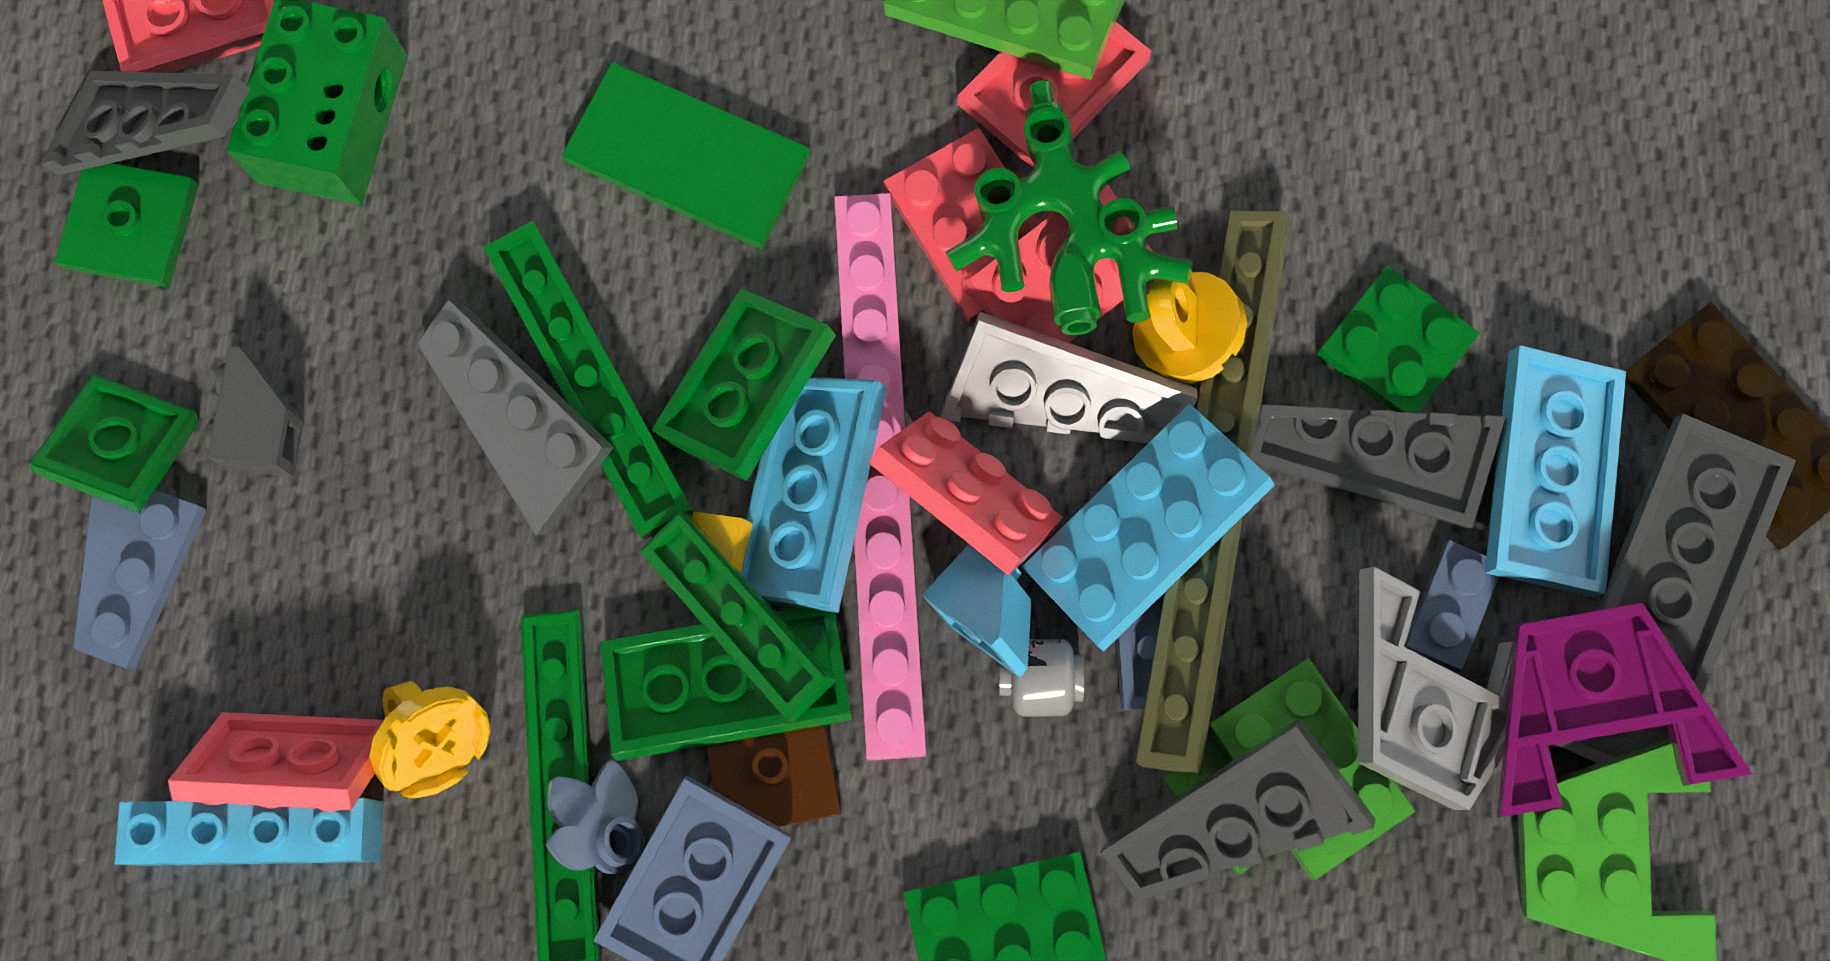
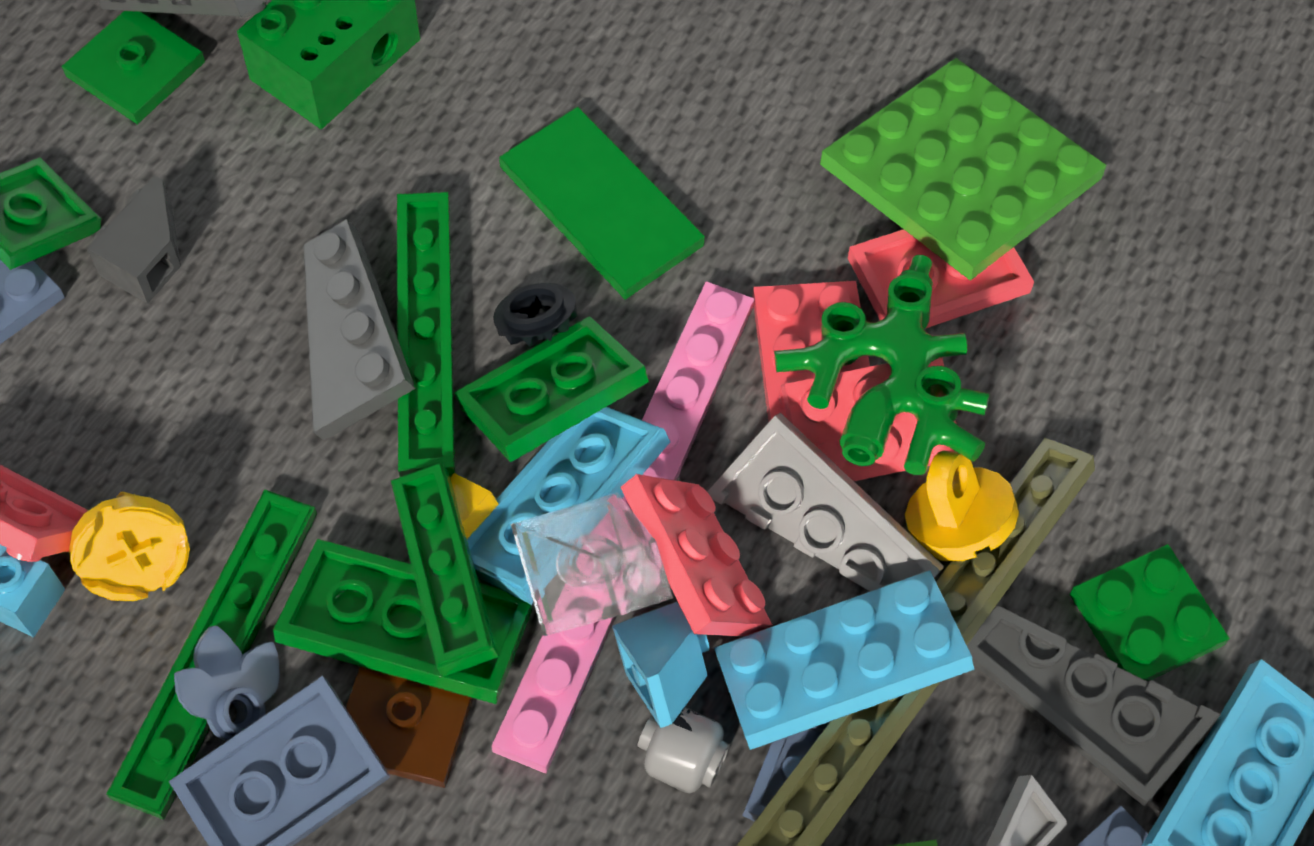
camera: 20 degrees right, 15 degrees down
(669, 304) = (517, 313): none -> black gear
(877, 551) = (589, 563): none -> clear slope

